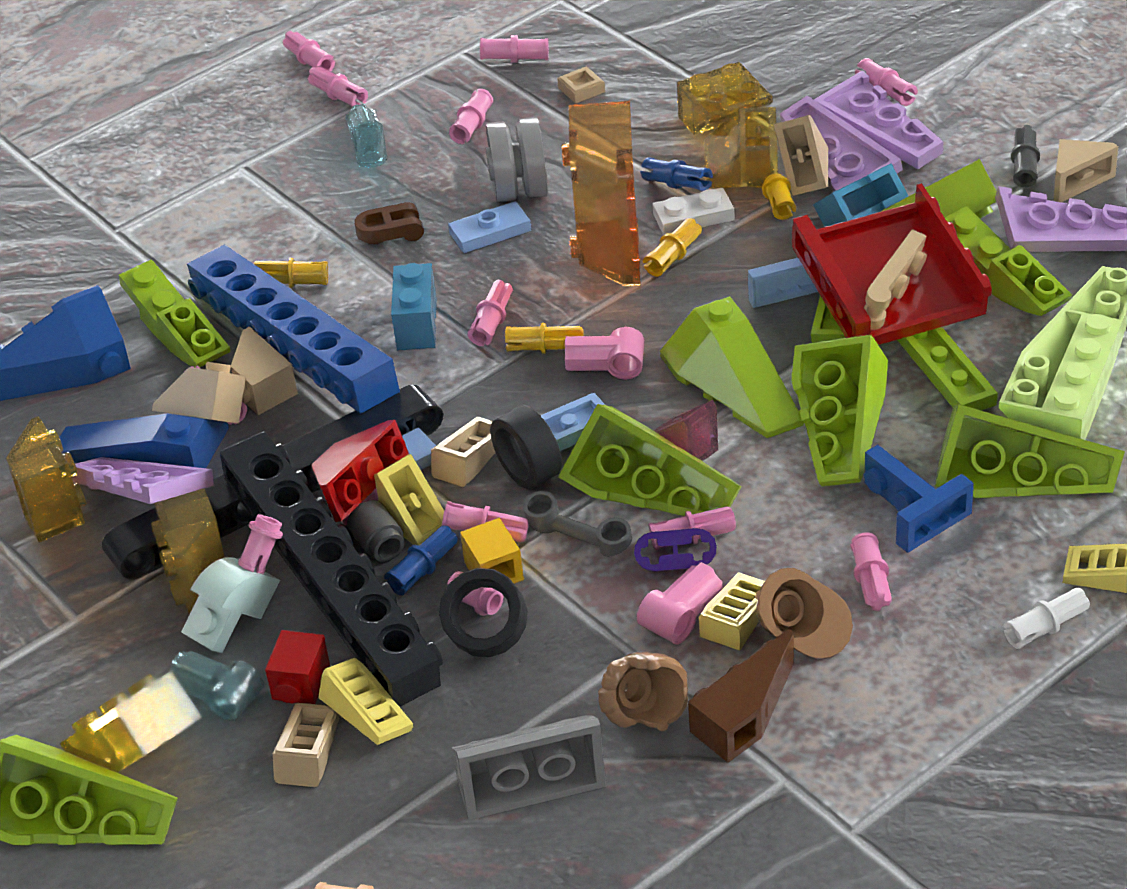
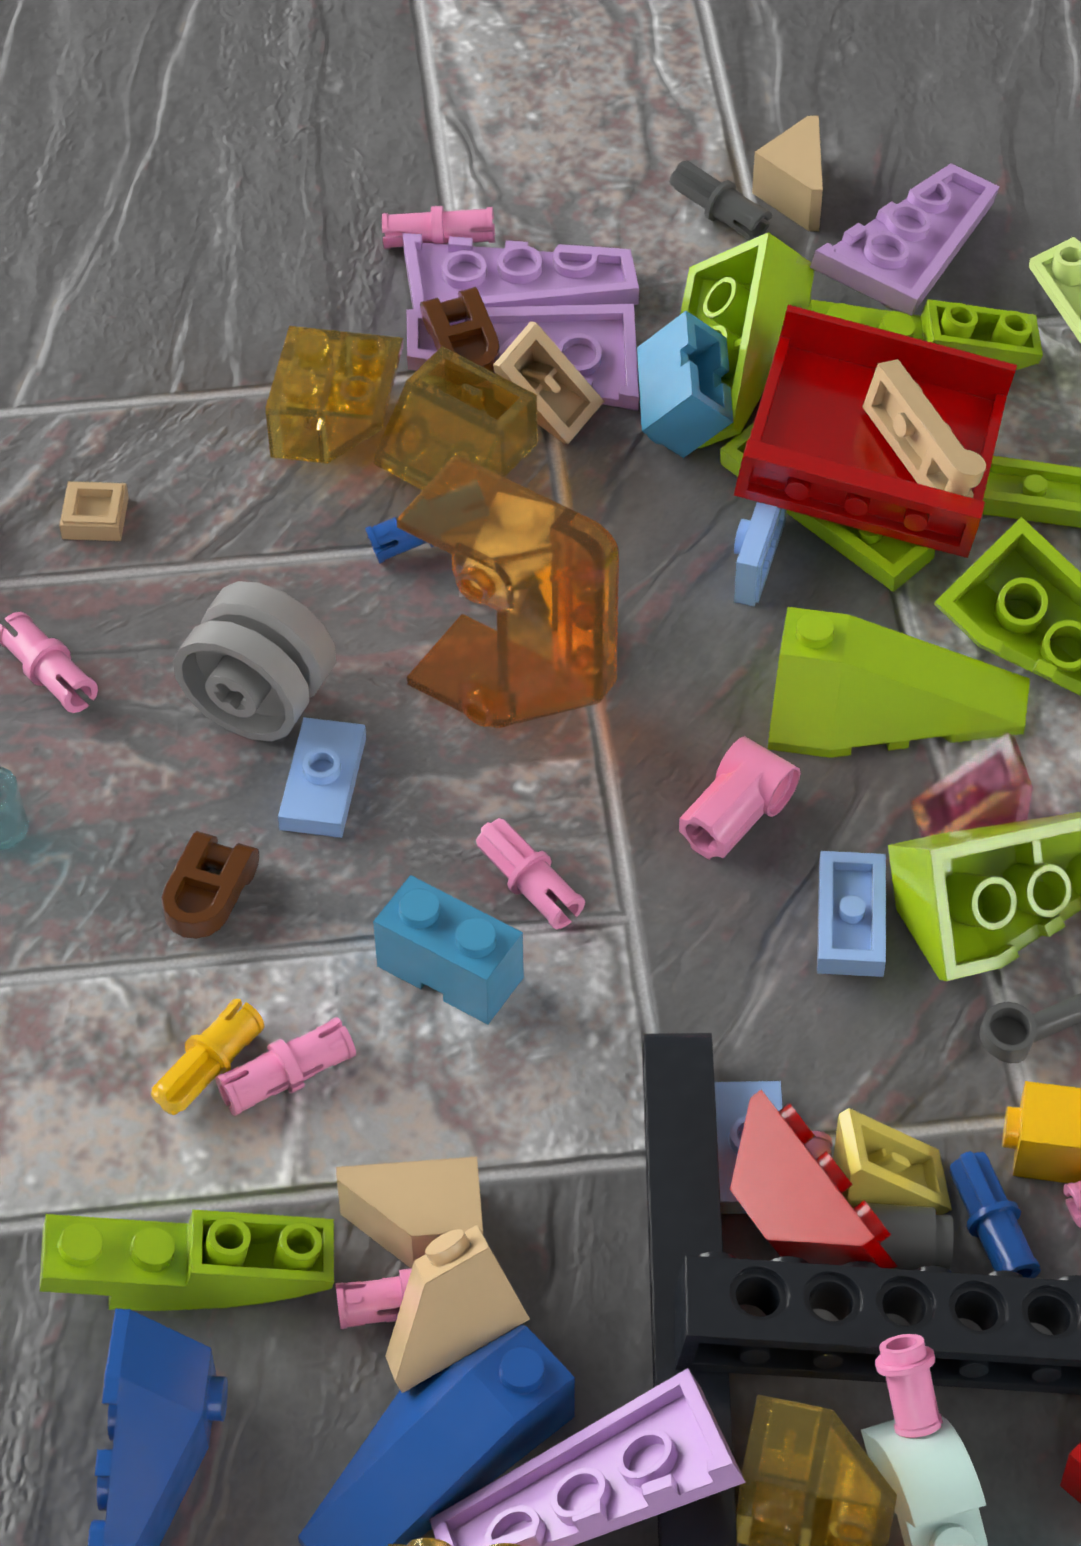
camera: 60 degrees left, 10 degrees up
(295, 328) = (345, 1099): blue brick -> none
(330, 303) = (285, 1066): none -> bright pink pin
(463, 453) = (817, 1084): tan slope -> none
(465, 517) = (977, 1109): bright pink axle -> none
(526, 447) = (892, 951): black tyre -> none
(539, 337) = (636, 847): yellow axle -> none
(777, 190) = (570, 453): yellow pin -> none
(808, 104) = (470, 339): none -> reddish brown plate

